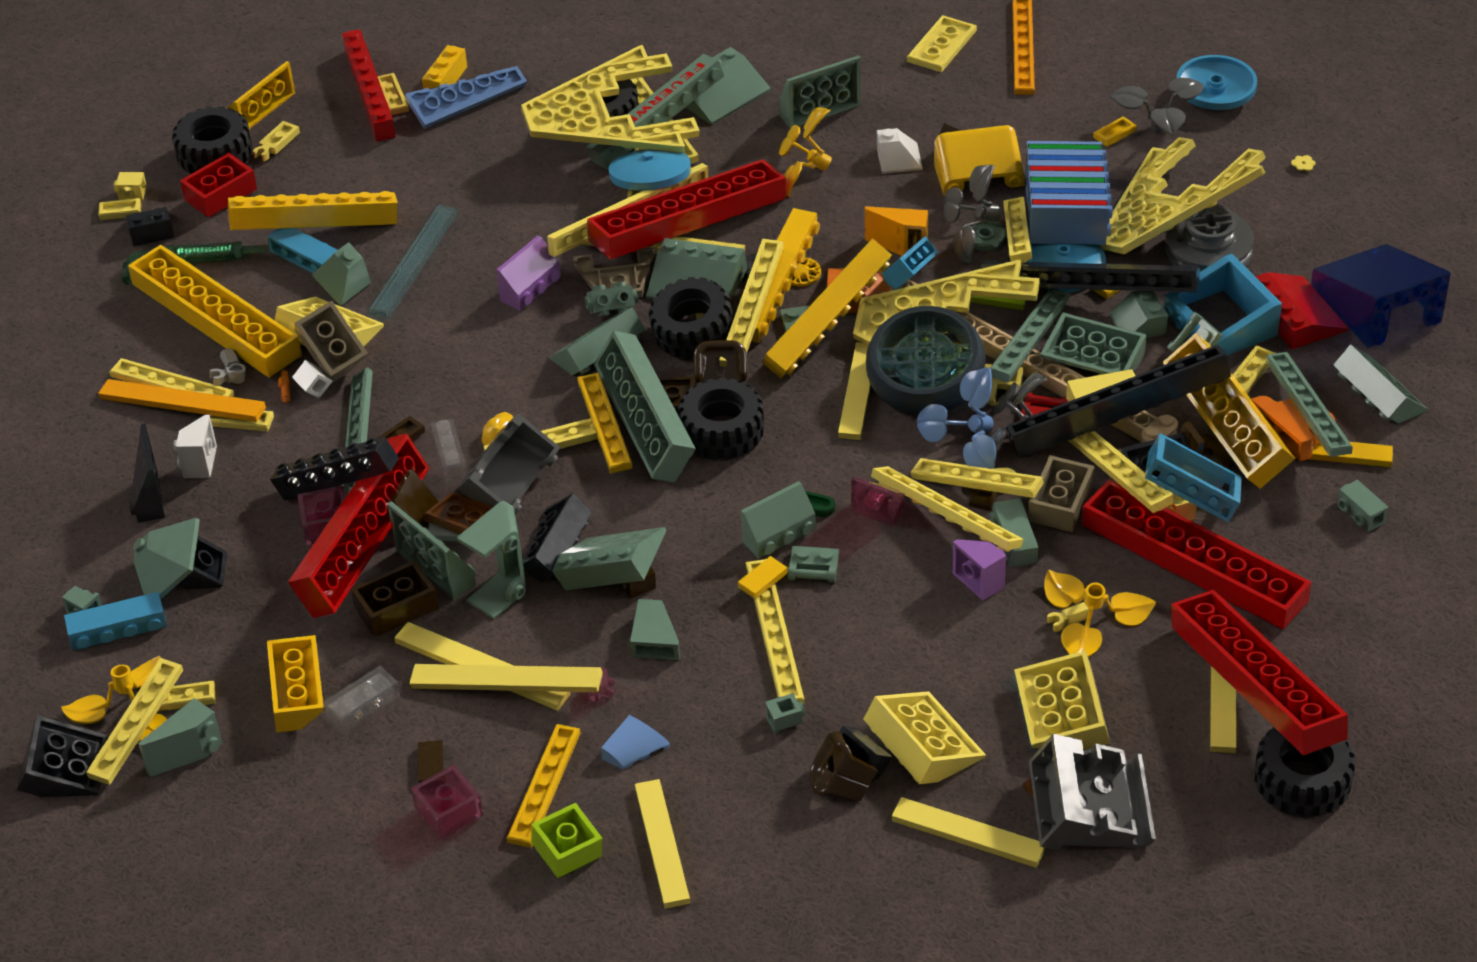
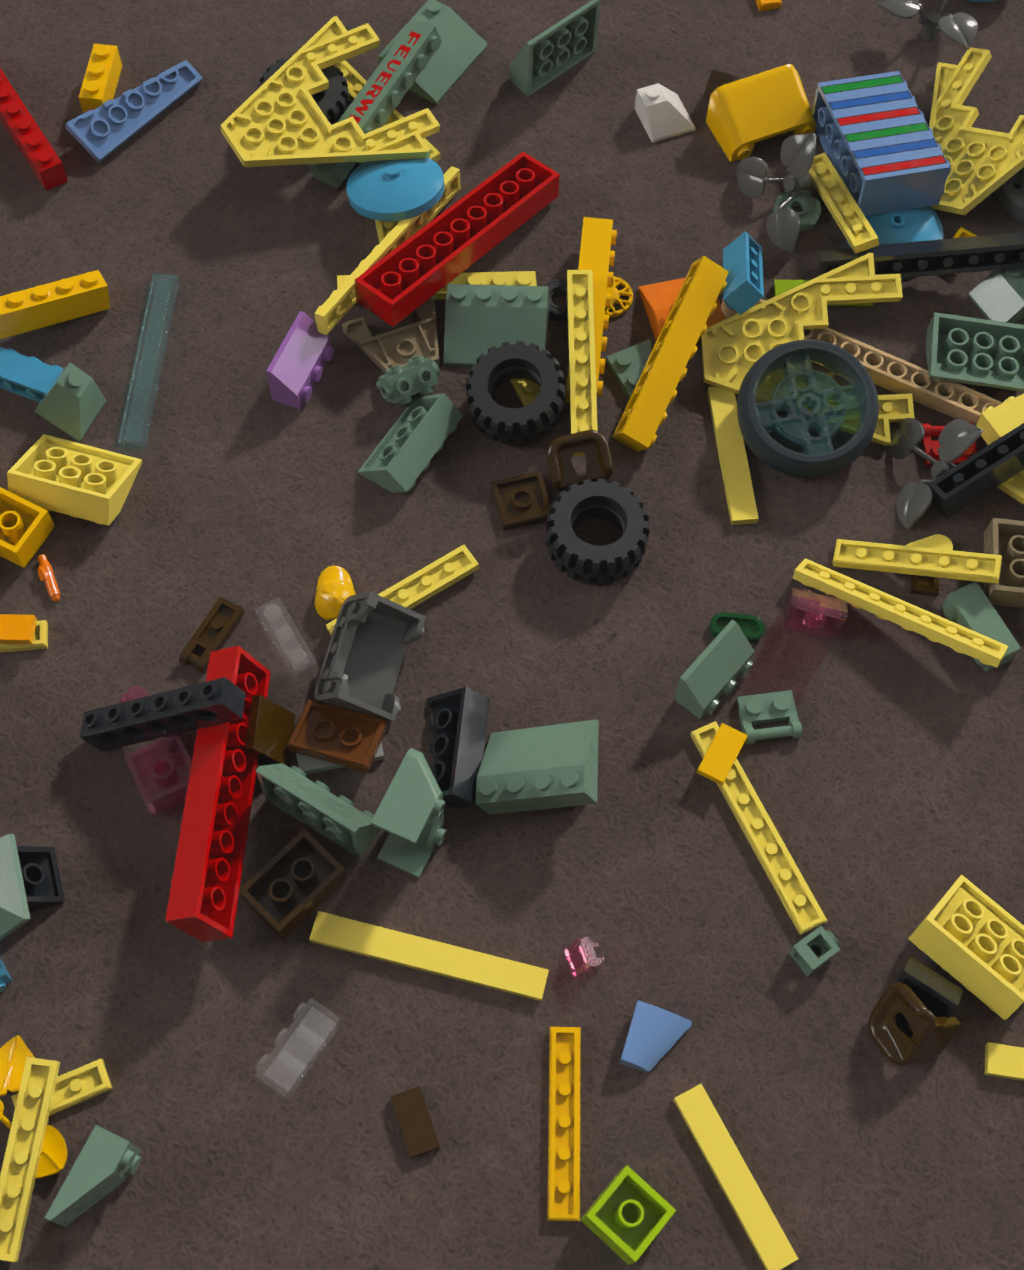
camera: 20 degrees left, 20 degrees up
(294, 682) = (211, 1046): yellow slope -> none
(312, 379) = (81, 565): white brick -> none
(330, 341) = (92, 511): dark tan slope -> none
(358, 412) = (159, 618): sand green tile -> none
(393, 94) = (46, 119): light yellow tile -> none
(447, 801) = (461, 1189): clear pink brick -> none
(506, 678) = (470, 977): light yellow tile -> none
(604, 423) = (461, 563): yellow tile -> none
(644, 407) = (504, 534): sand green brick -> none
(653, 632) = (620, 861): sand green slope -> none
(816, 158) = (575, 101): yellow plant -> none
(895, 227) = (706, 223): light orange slope -> none
(976, 389) = (900, 455): medium blue plant -> none
(979, 566) = (966, 690): medium lavender slope -> none
(1029, 334) = (903, 353): sand green tile -> none
(1115, 131) = (886, 45): yellow tile -> none

